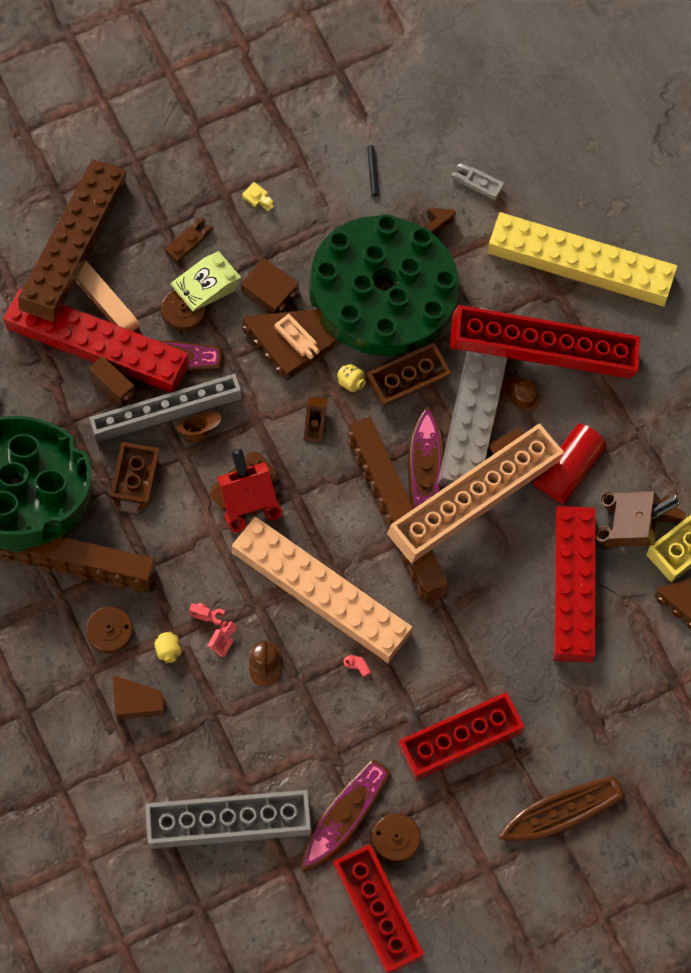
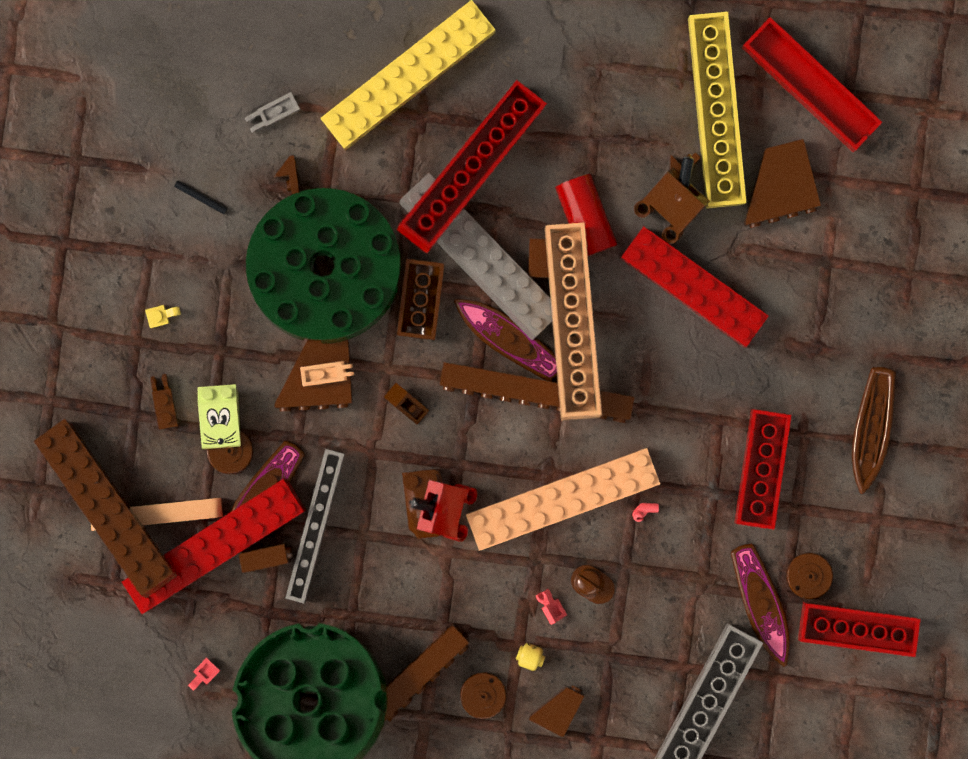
camera: 55 degrees left, 20 degrees up
(134, 477) = (360, 590): reddish brown slope -> none
(198, 427) = (349, 507): reddish brown piece -> none
(202, 612) = (517, 609): coral plate -> none
(270, 287) = (258, 362): reddish brown brick -> none
(351, 378) = (389, 348): light yellow head -> none
(520, 393) = (494, 212): reddish brown piece -> none

